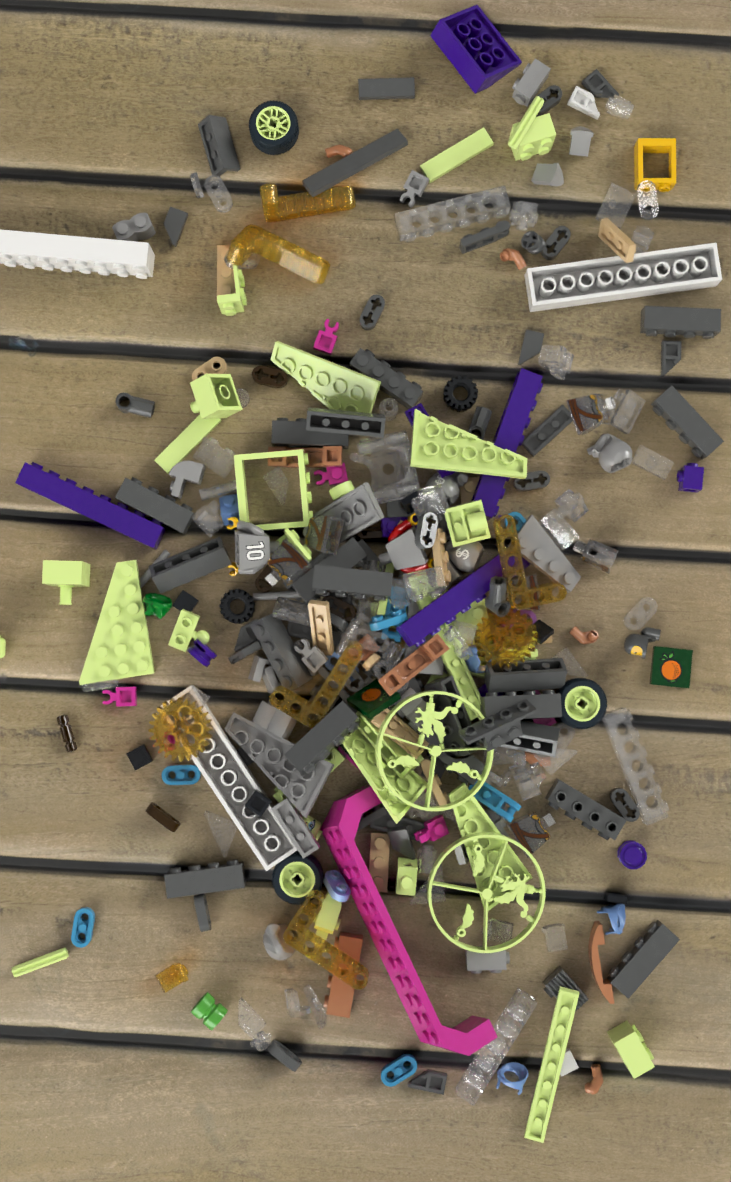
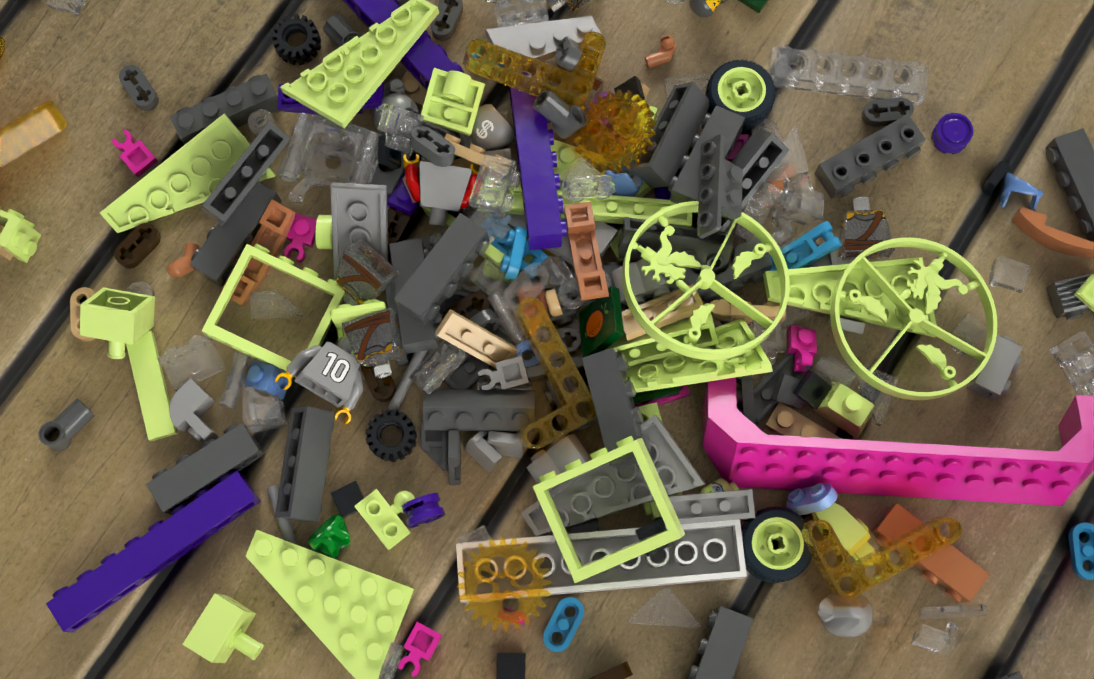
camera: 60 degrees left, 10 degrees down
(234, 792) = (673, 532): none -> yellowish green window
(272, 413) = (182, 266): none -> nougat arm
(407, 851) = (812, 389): none -> black tile
(540, 580) = (568, 53): none -> dark grey beam

